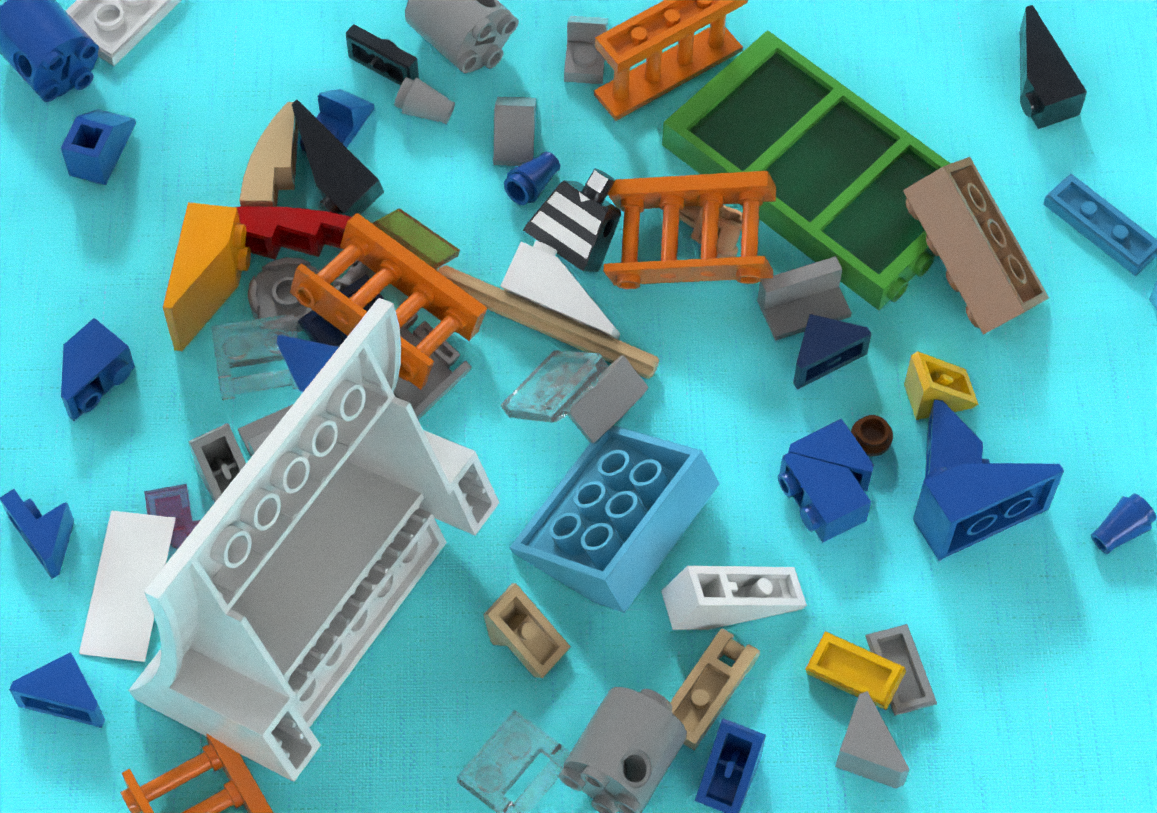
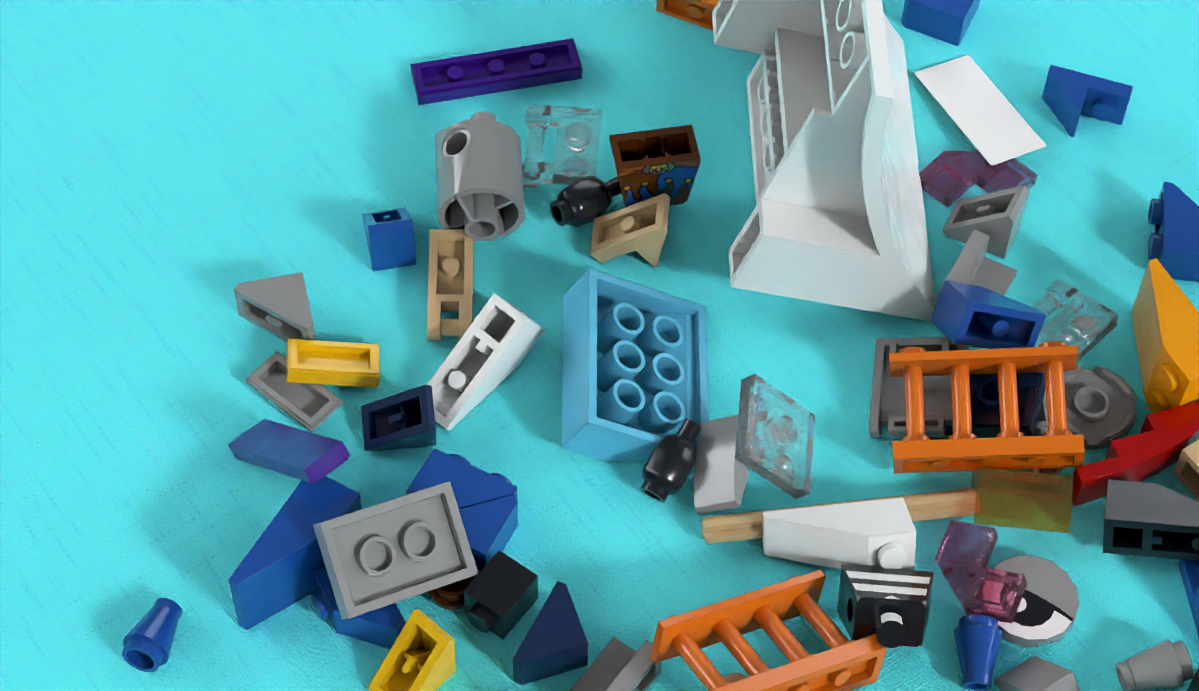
camera: 145 degrees right, 5 degrees down
(463, 193) = (1046, 605): none -> tile
(477, 647) = (656, 163): none -> reddish brown torso
(497, 207) = (977, 588): none -> clear pink tile
(538, 695) = (584, 201): none -> black plant
(642, 419) = (670, 463): none -> black plant
(830, 575) = (400, 421): none -> dark blue slope
(843, 396) = (500, 595): none -> black brick
(917, 434) = (395, 550): none -> light grey plate
(952, 570) = (289, 451): none -> tile

